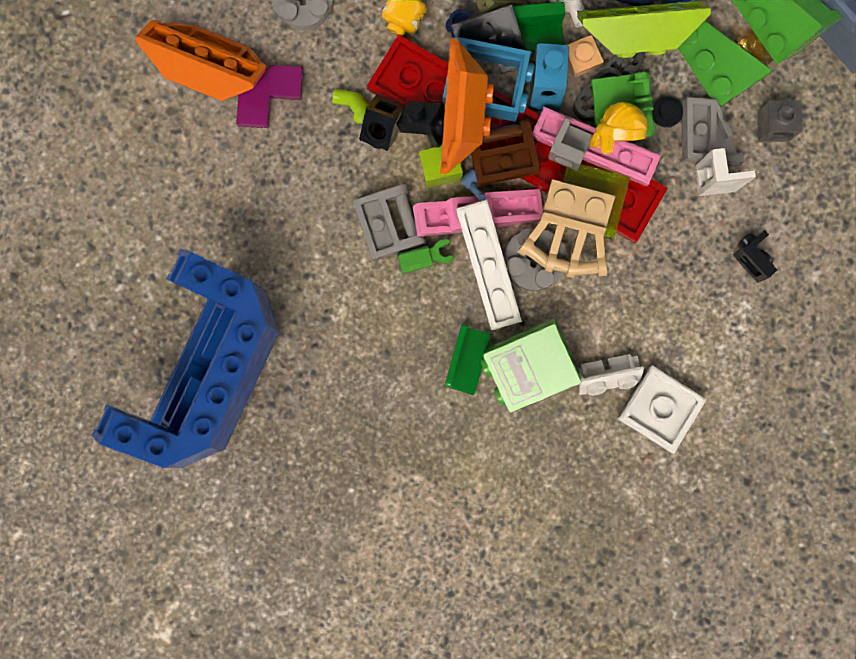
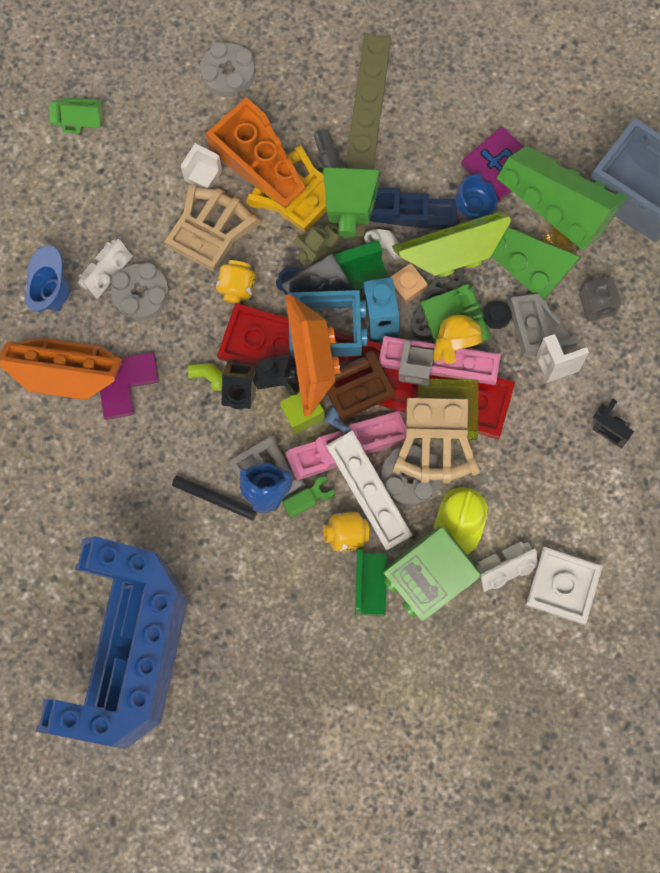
camera: 10 degrees left, 10 degrees down
(330, 234) = (214, 497): none -> black bar
(374, 227) = (254, 489): none -> blue hair
(455, 301) = (346, 531): none -> yellow head
(578, 314) = (464, 516): none -> neon yellow piece

